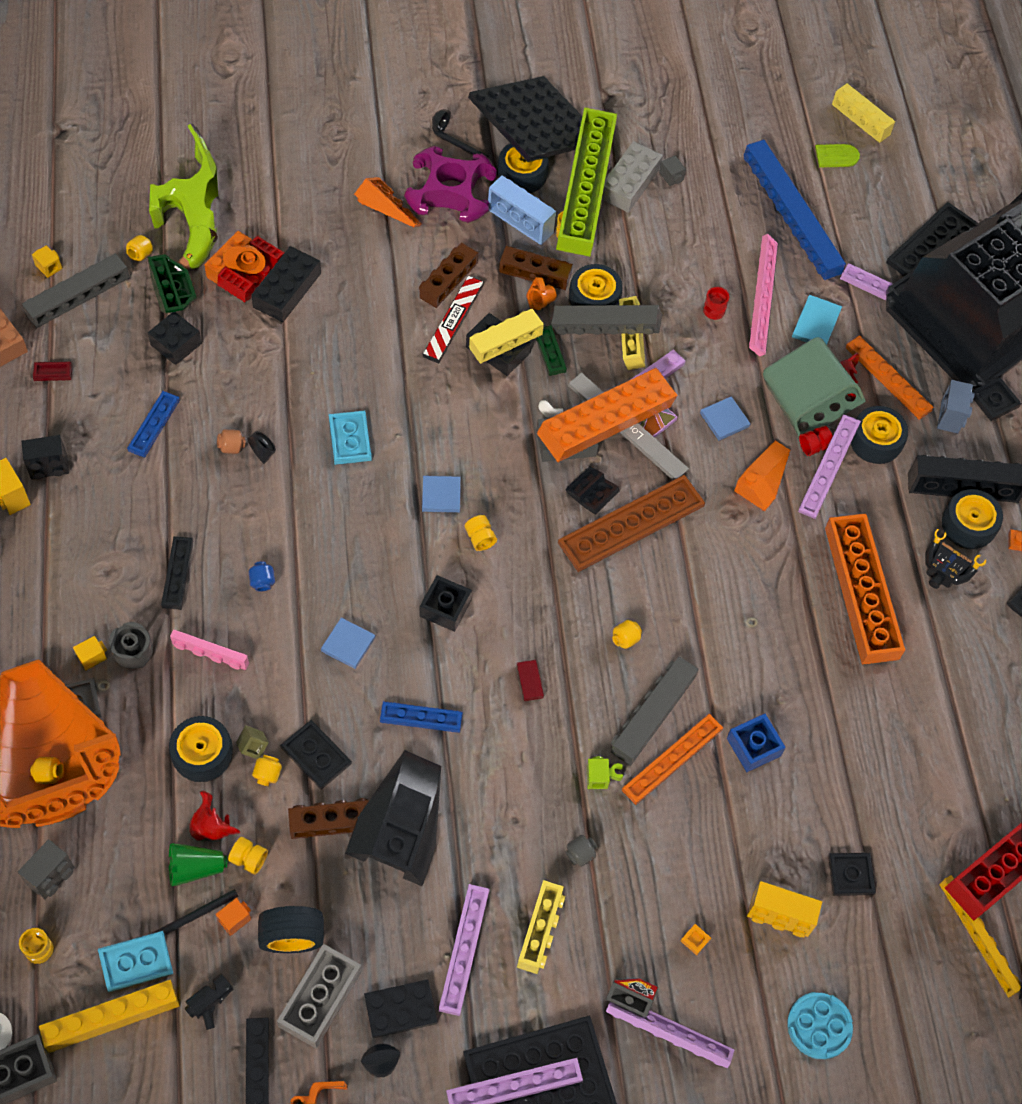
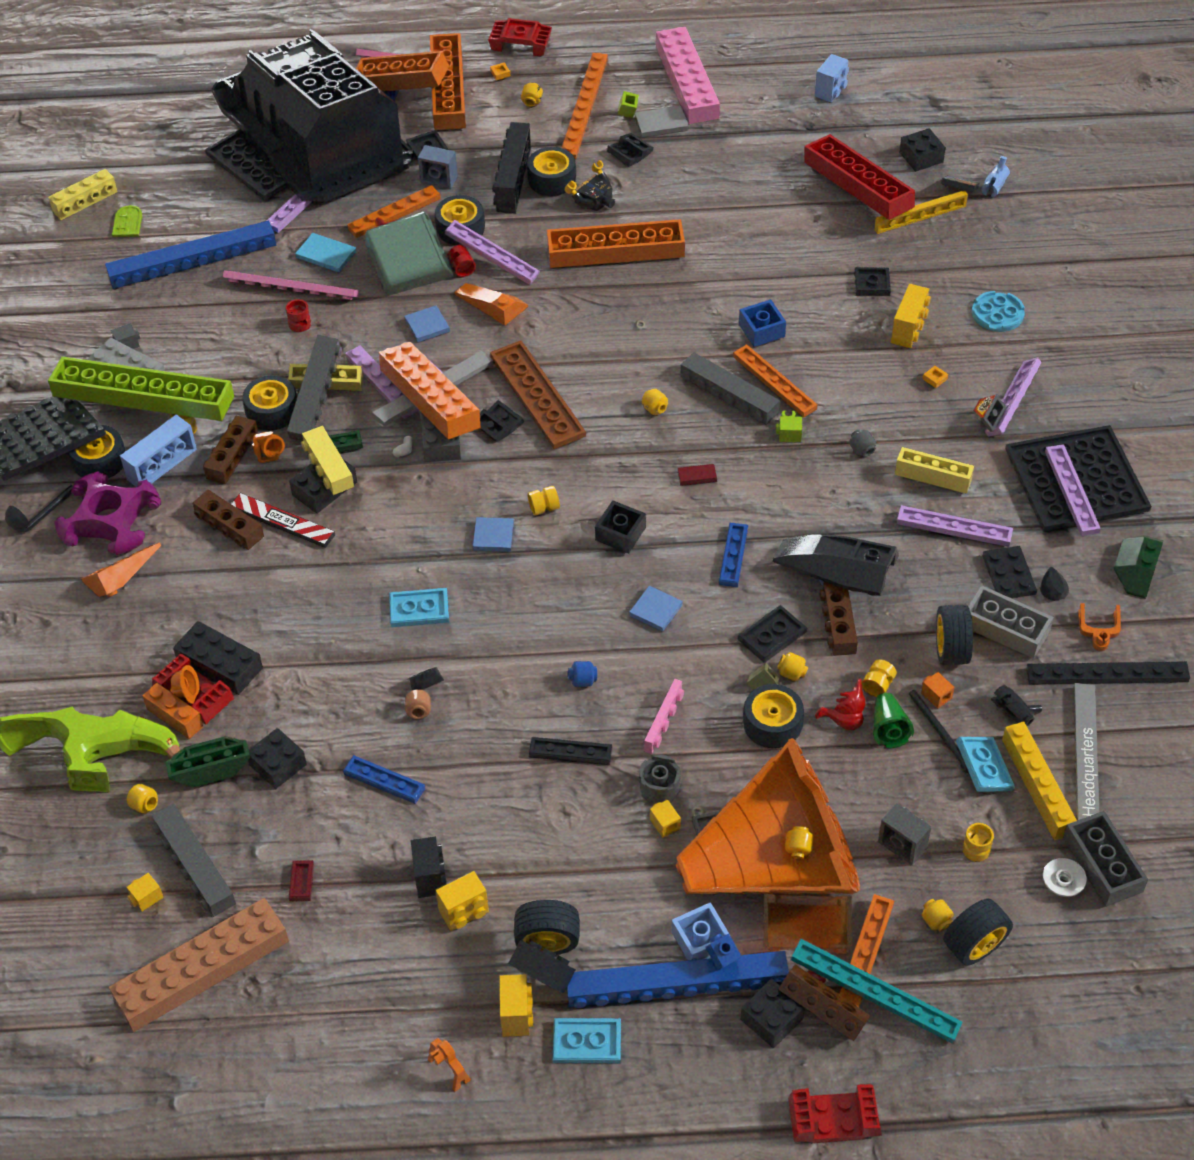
camera: 80 degrees left, 10 degrees down
(149, 1074) = (1086, 750): none -> light grey tile

